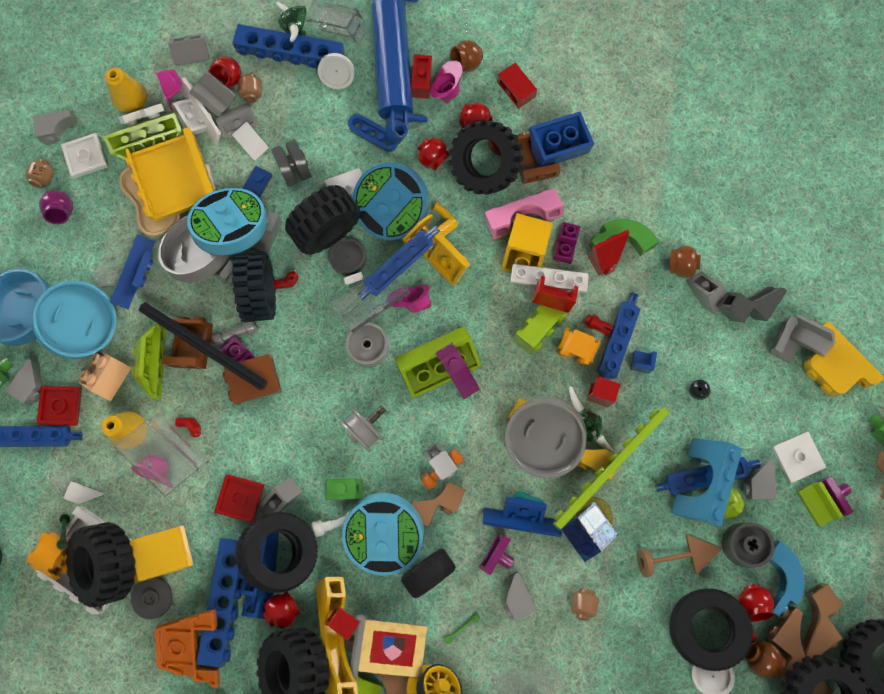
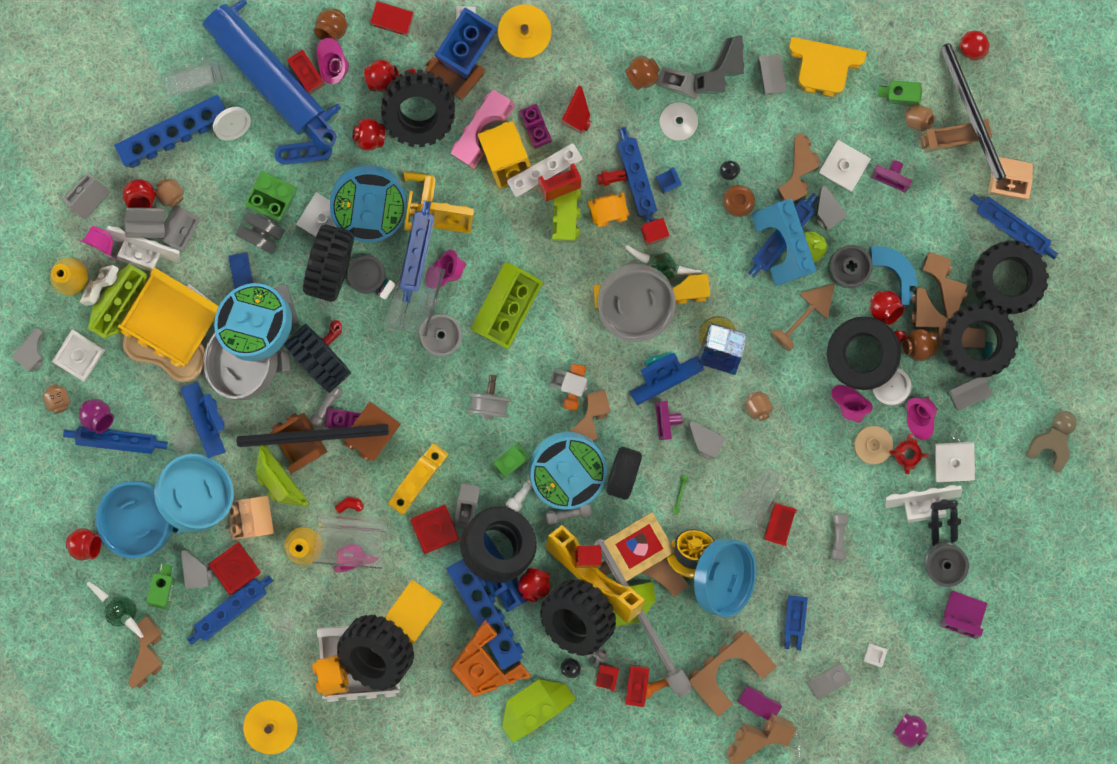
camera: 40 degrees left, 10 degrees up
(56, 238) = (116, 440): none -> blue plate
(62, 543) = (335, 659): dark green axle -> none
(79, 493) = (307, 621): white sticker -> none
(160, 602) = (437, 653): dark grey piece -> none
(250, 141) = (206, 237): white sticker -> none
(257, 445) = (417, 478): none -> yellow brick
(292, 20) = (157, 105): clear green helmet -> none
(322, 144) = (271, 196): none -> bright green slope
(341, 564) = (553, 517): none -> light grey piece
(458, 370) = (528, 301): magenta slope -> none
(604, 473) = (701, 296): lime plate -> none
(613, 163) = (524, 31): none -> yellow piece
(639, 237) = (584, 77): bright green arch -> none
(667, 665) = (852, 403): none -> dark pink piece
(676, 326) = (678, 131): none -> white dish
(690, 419) = (738, 200): none -> dark orange piece
(766, 429) = (803, 163): none -> medium nougat arch
(813, 336) = (788, 60): light grey panel -> none
(819, 503) = (884, 193): lime panel -> none

